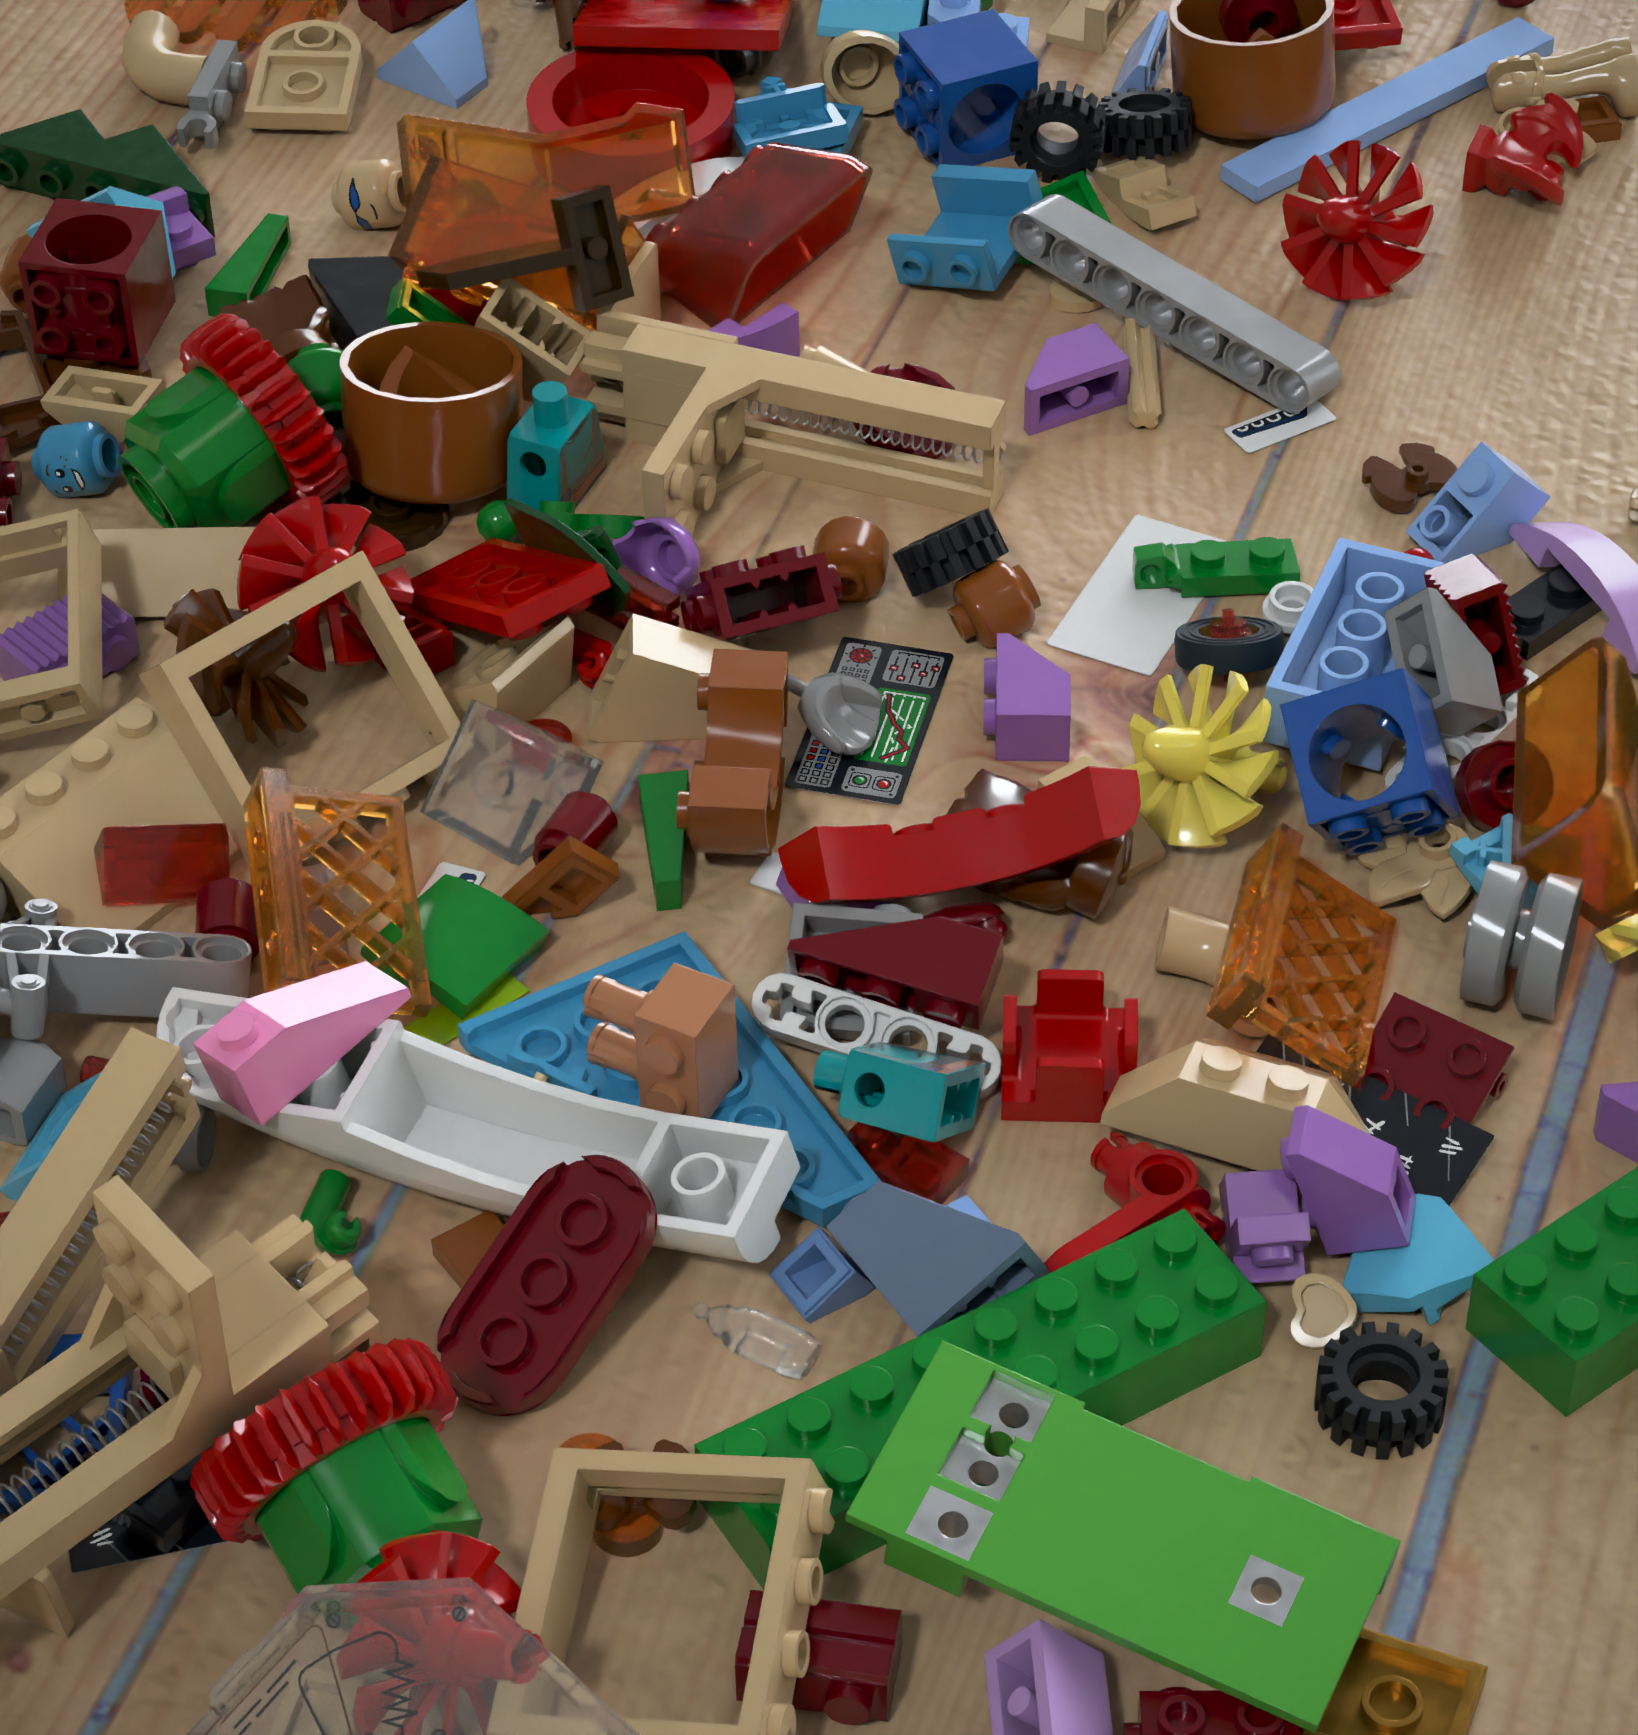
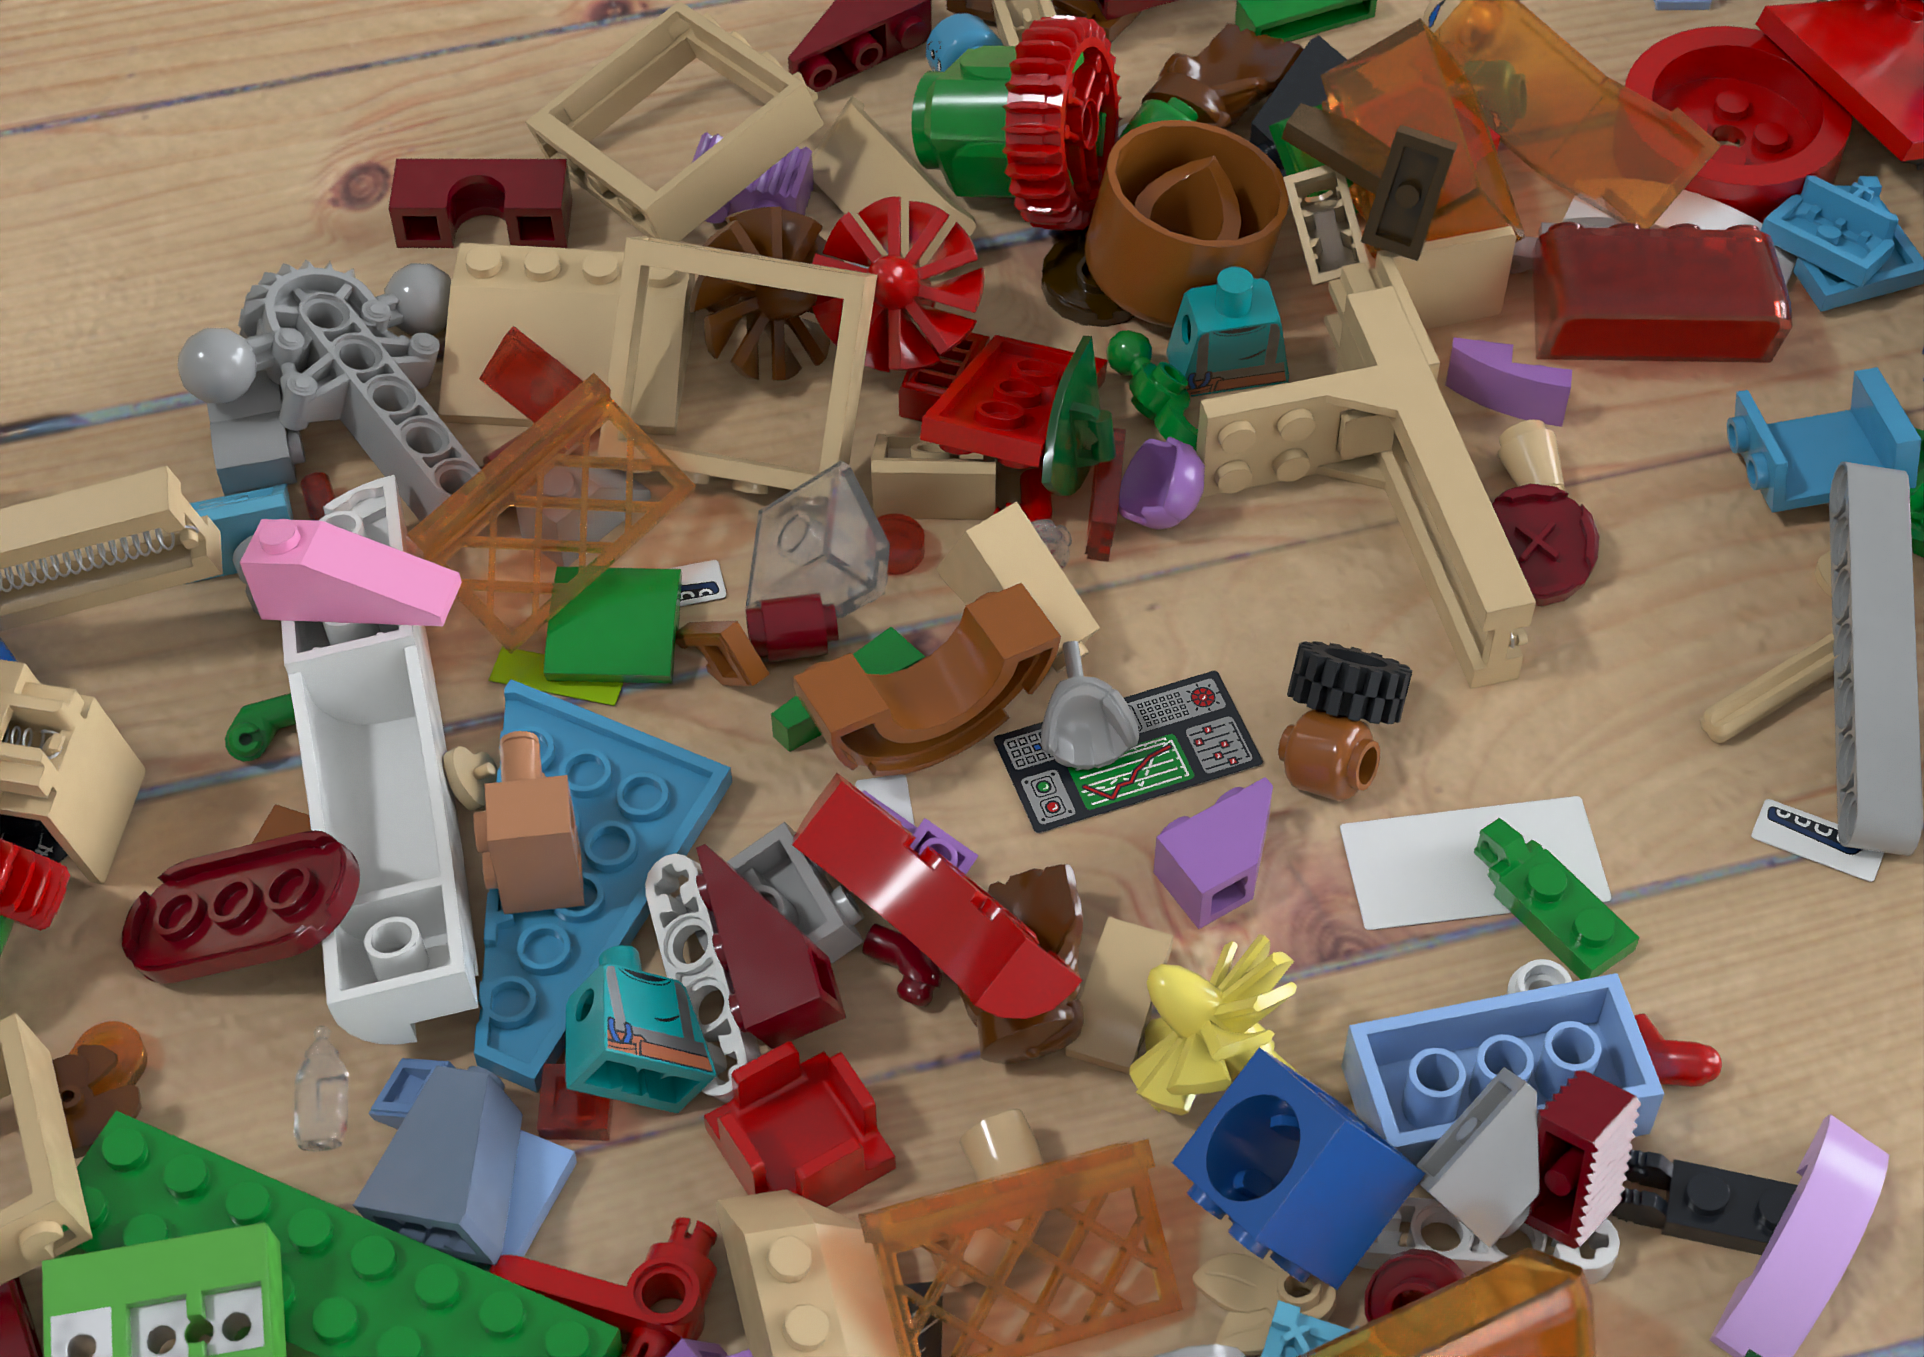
camera: 55 degrees right, 10 degrees up
(776, 594) = (1158, 580): dark red brick -> none
(859, 554) = (1292, 612): dark orange head -> none
(1074, 379) = (1696, 638): medium lavender slope -> none
(1229, 643) = (1428, 963): black wheel -> none
(1399, 488) = (1853, 1003): reddish brown piece -> none
(1477, 507) = (1824, 1071): light blue slope -> none

